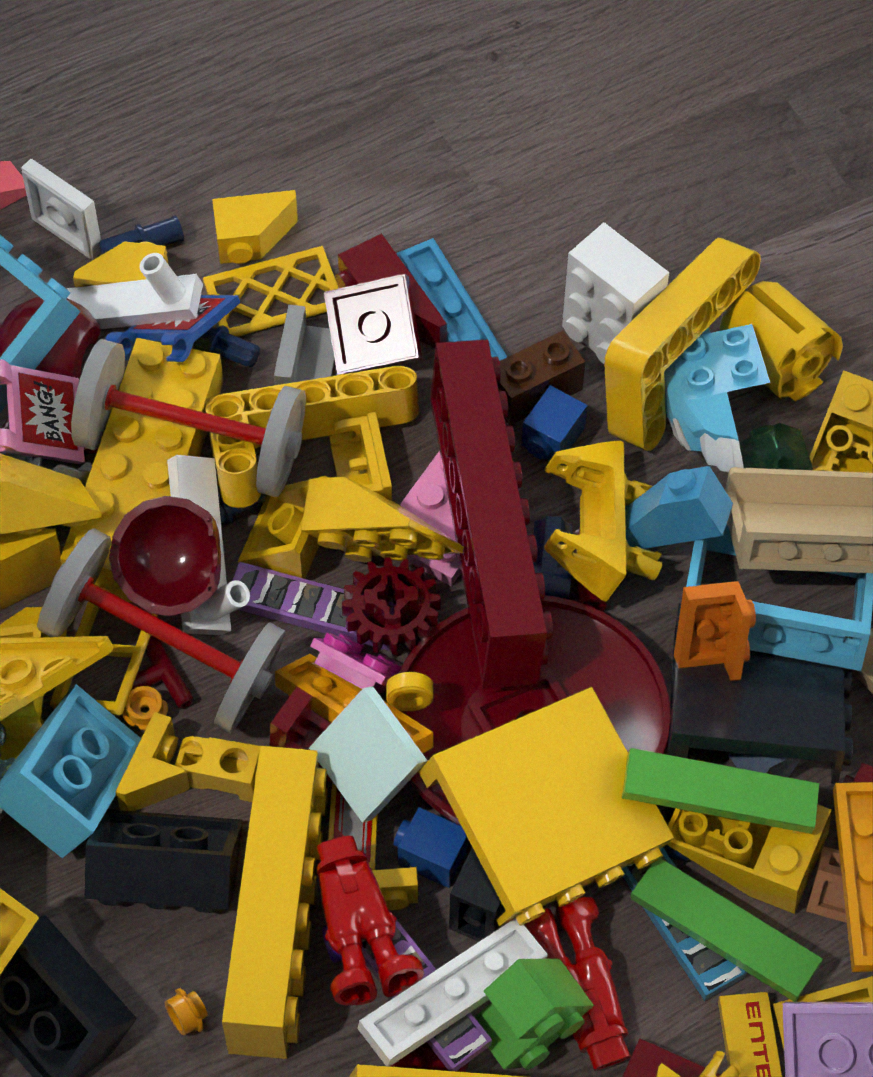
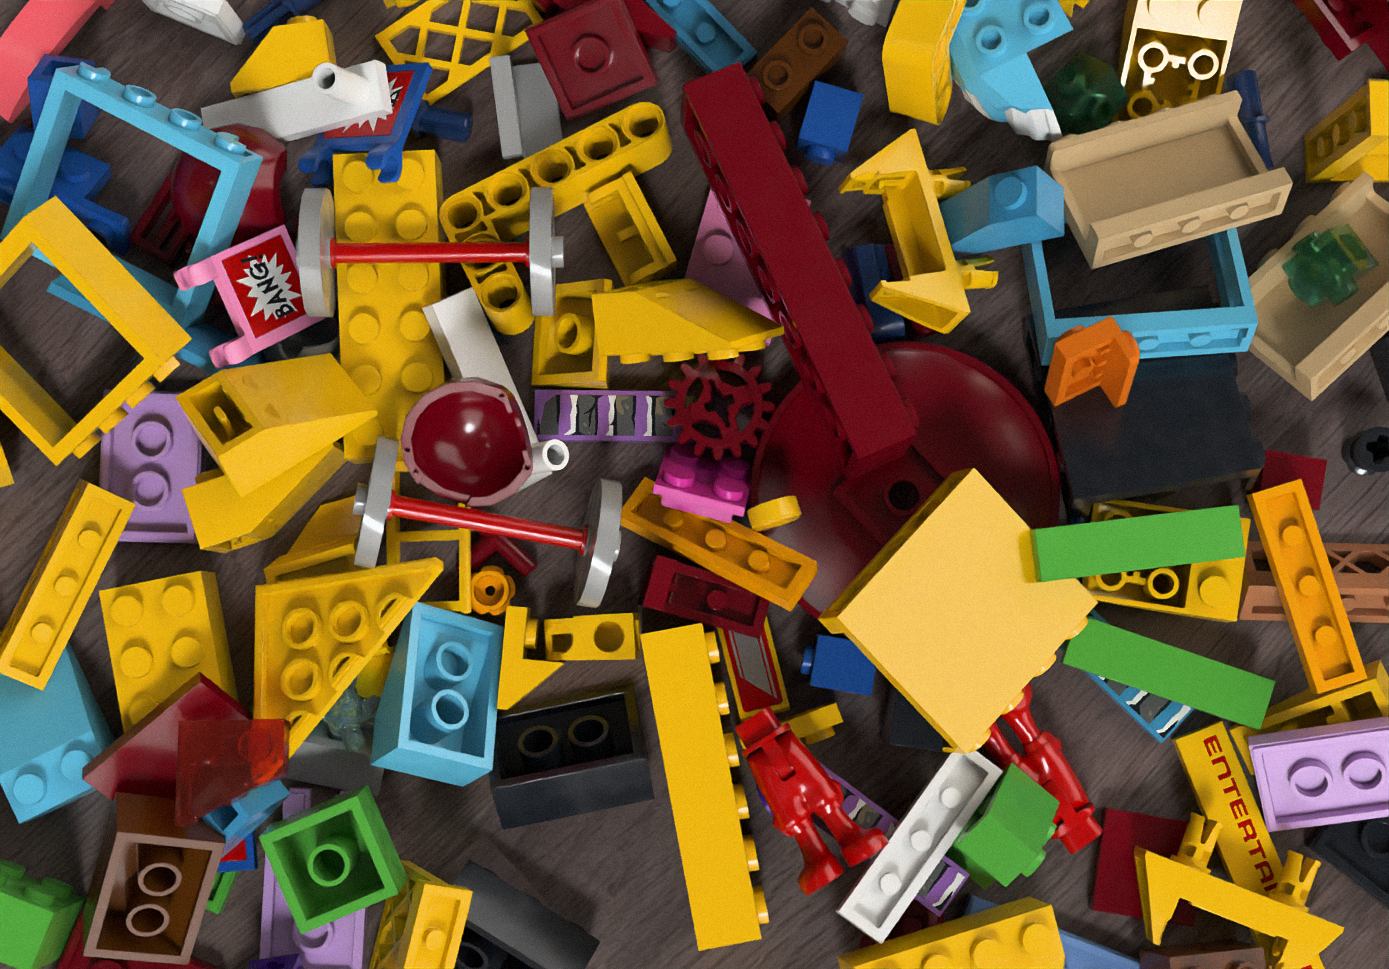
camera: 15 degrees left, 25 degrees up
(186, 1011) = (645, 911): light orange plate -> none
(368, 754) = (756, 609): light aqua tile -> none

